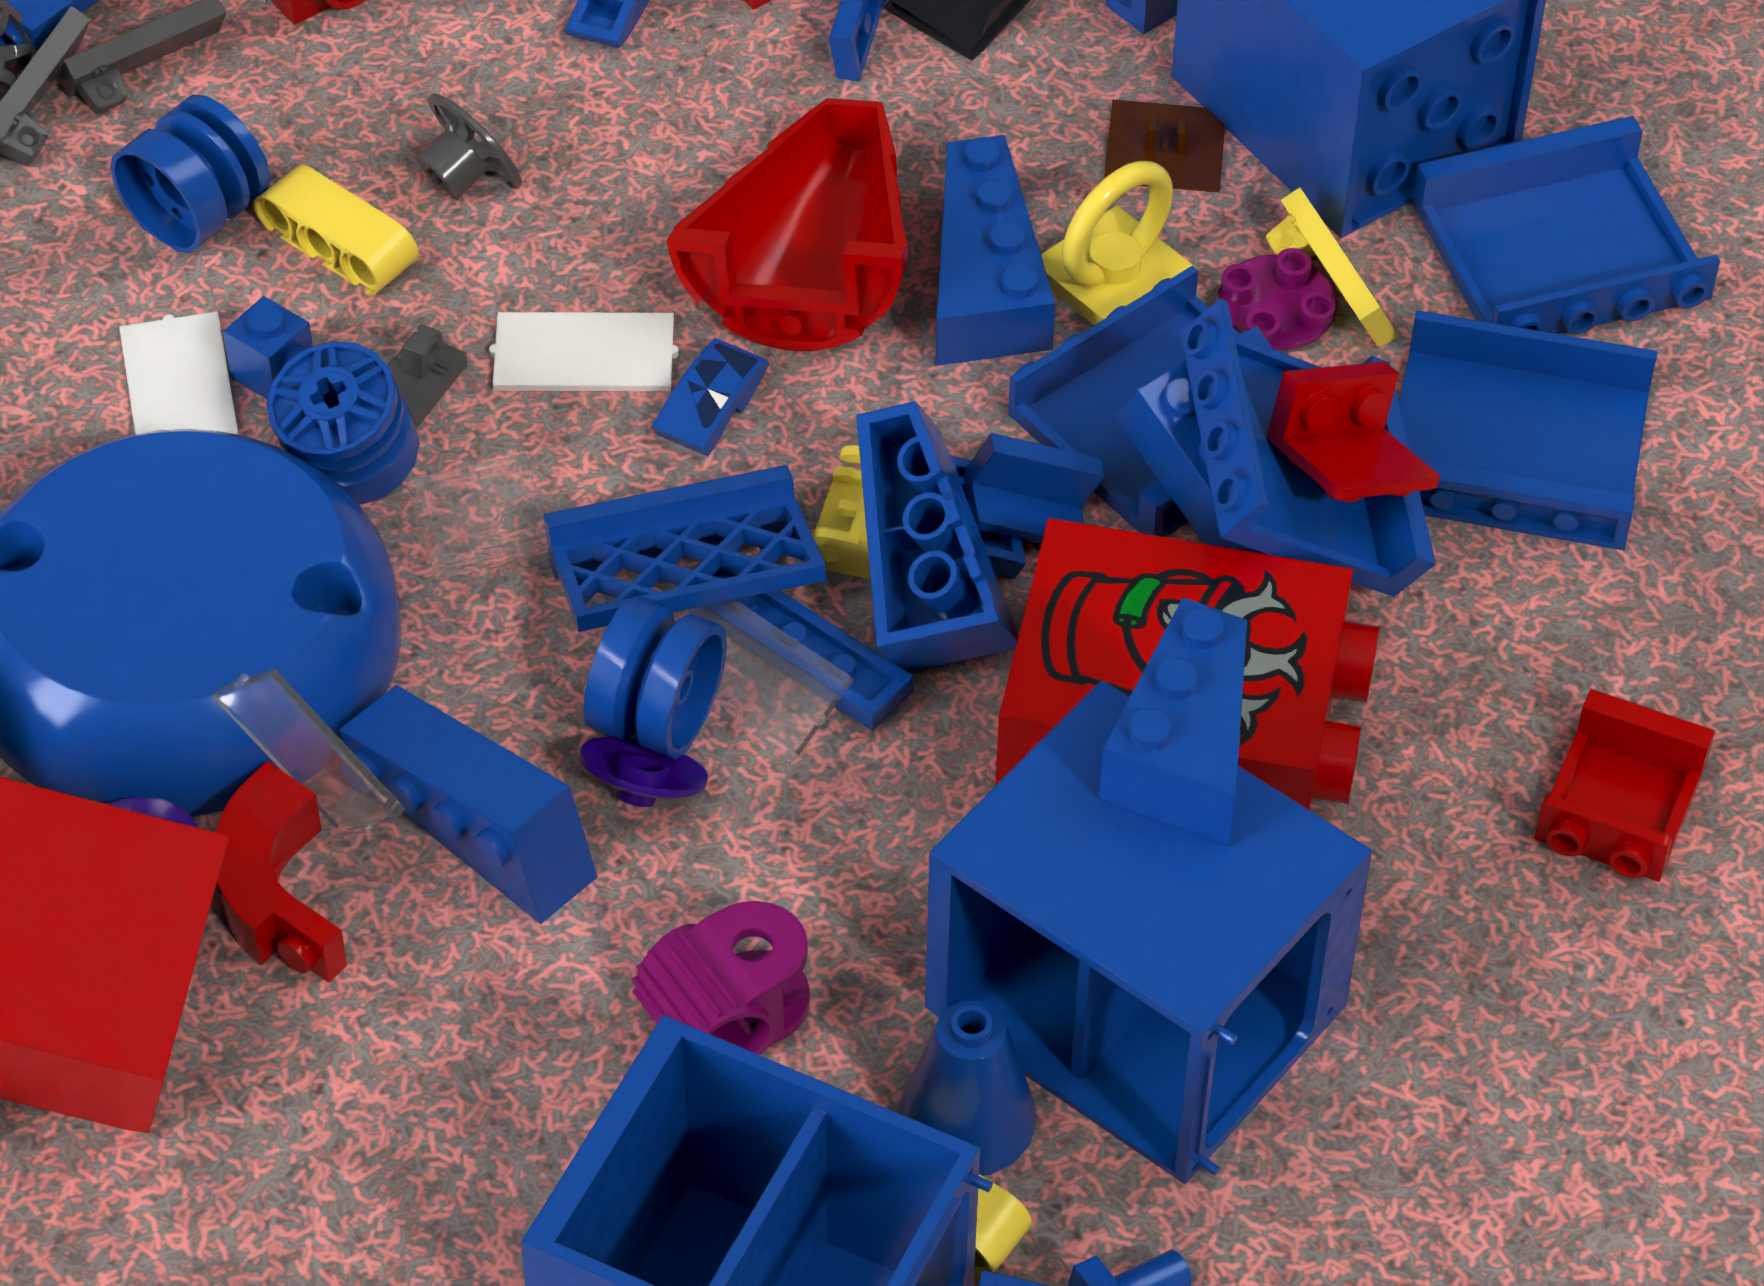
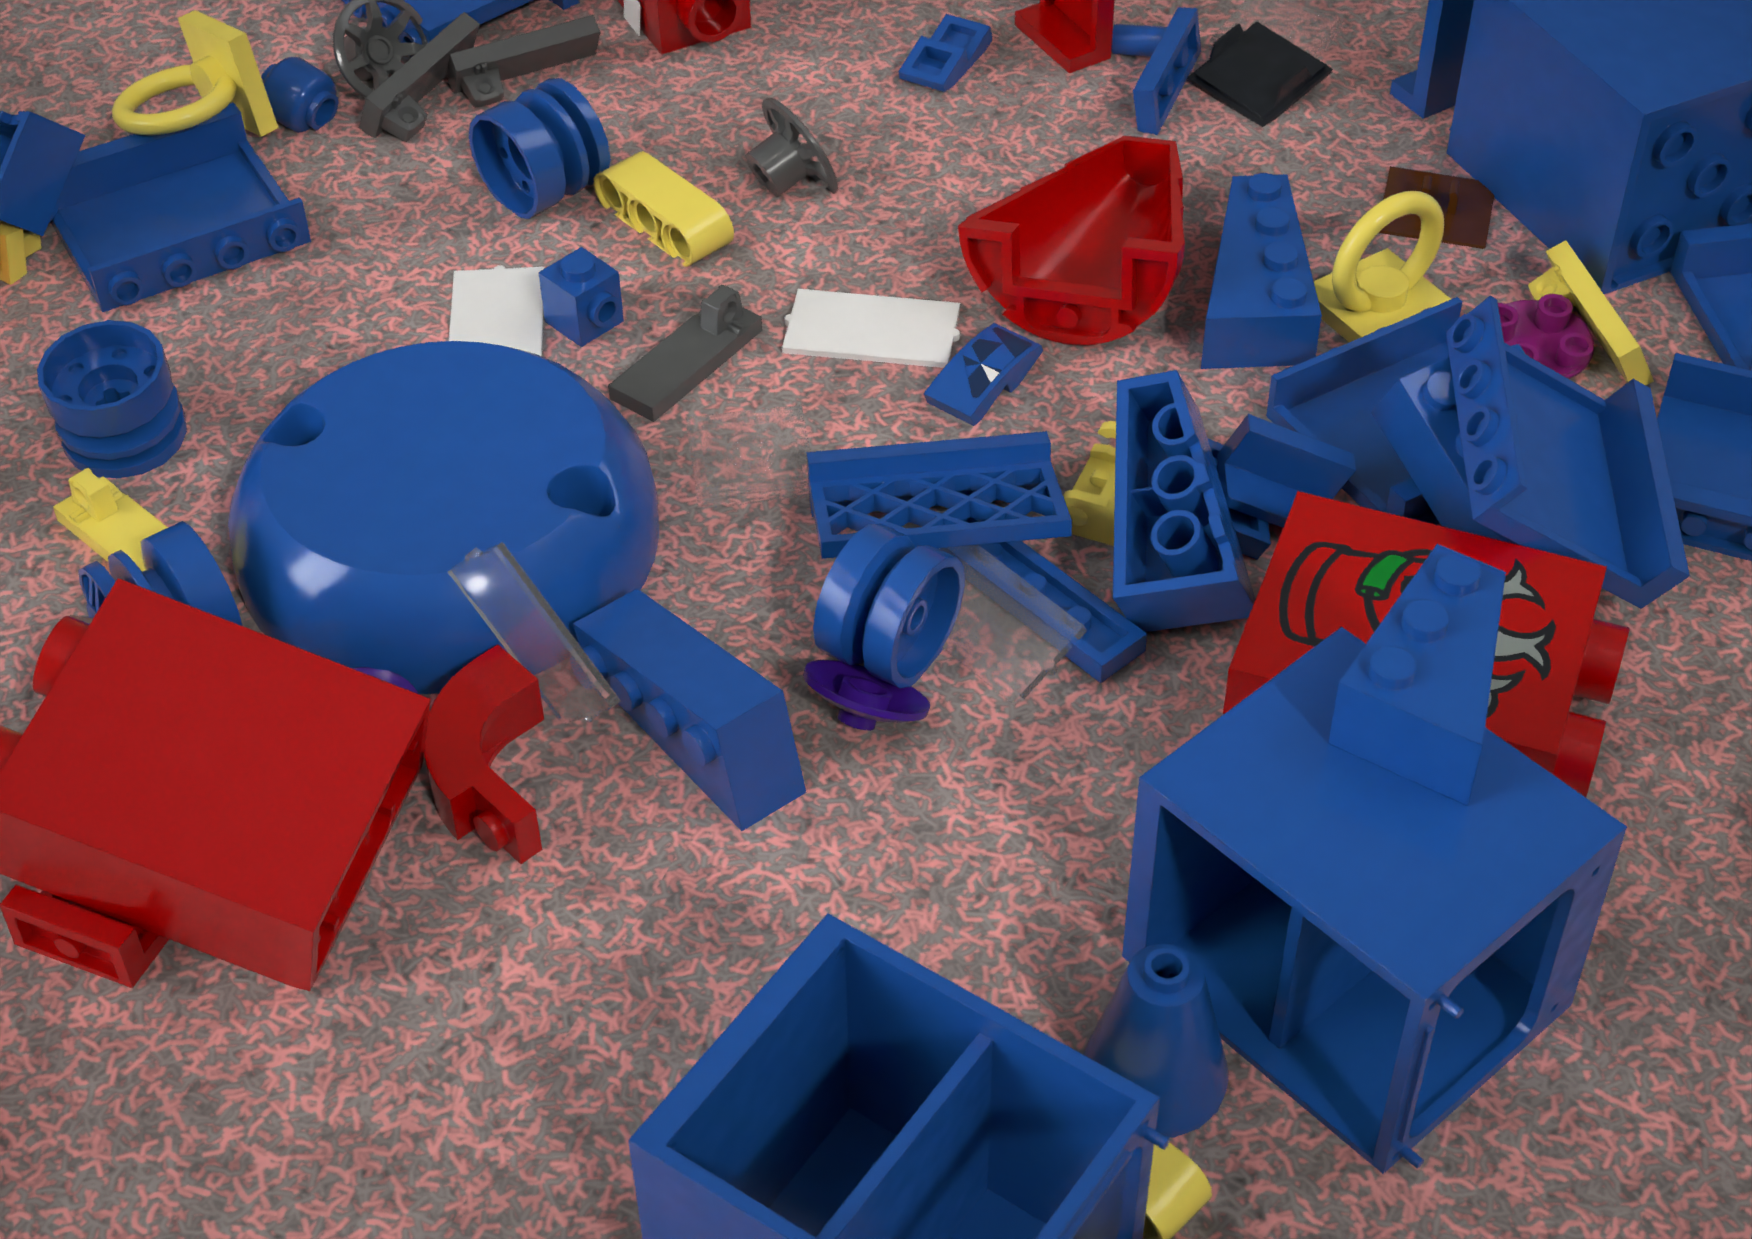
camera: 10 degrees right, 5 degrees down
(345, 418) = (635, 352): blue wheel -> none
(737, 997) = (937, 923): magenta piece -> none
(1336, 432) = (1597, 434): red bracket -> none

